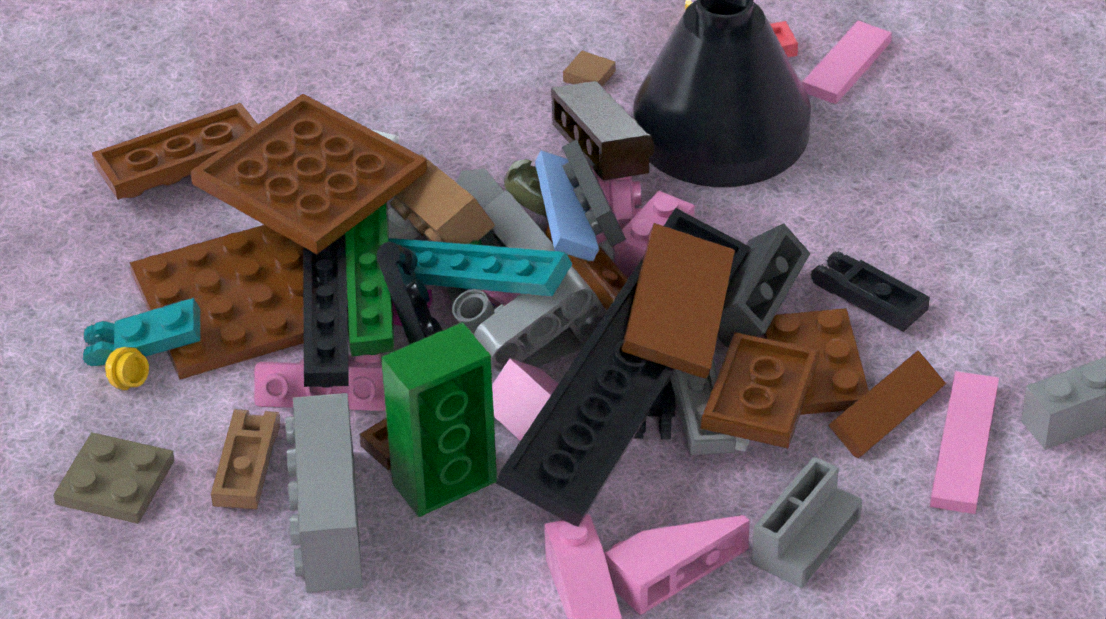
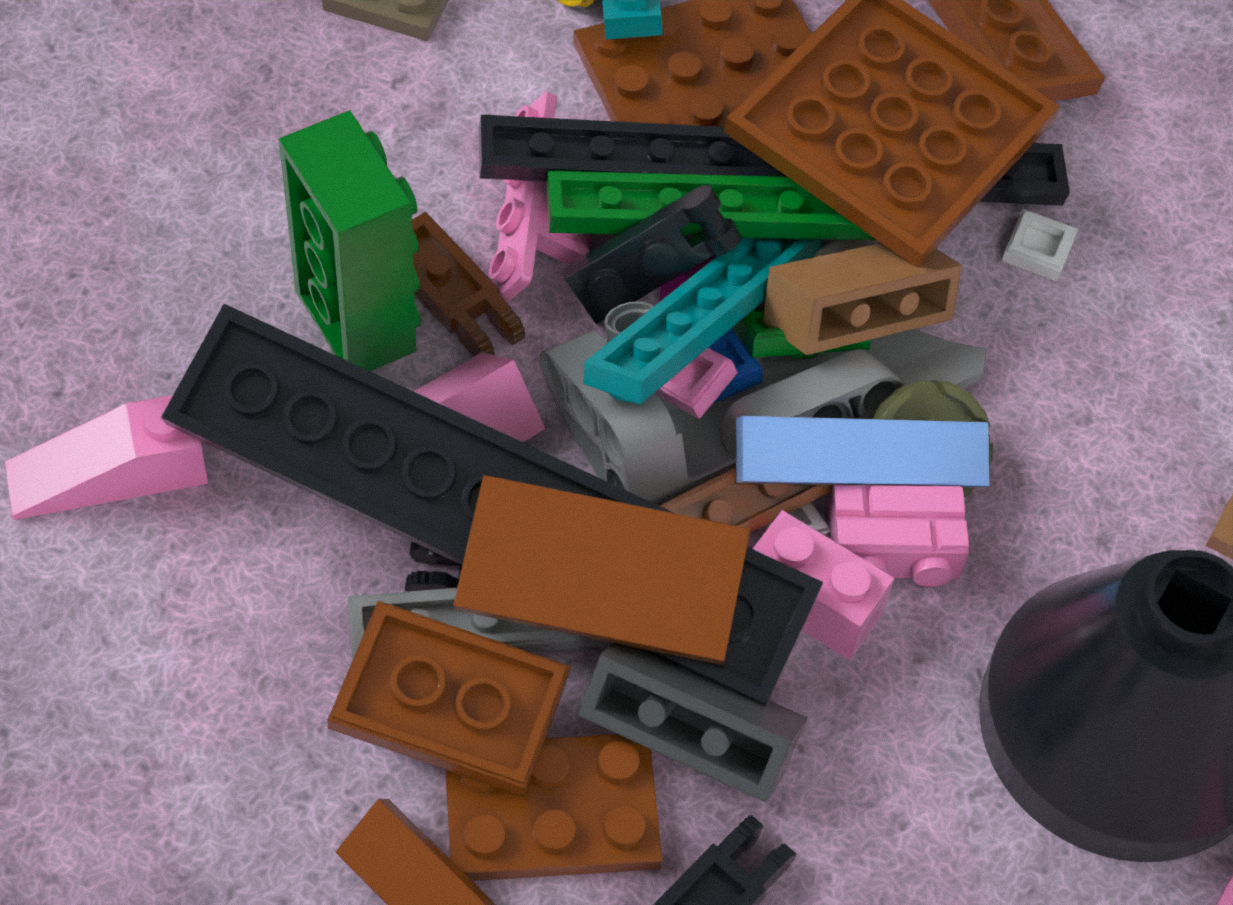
camera: 85 degrees right, 15 degrees up
(245, 459) = (409, 100): medium nougat plate -> none
(323, 493) = (229, 152): light grey brick -> none
(591, 194) = (861, 473): dark grey plate -> none
(603, 129) = (1044, 507): brick -> none
(671, 558) = (137, 549): bright pink slope -> none
(804, 524) = (183, 745): light grey piece -> none

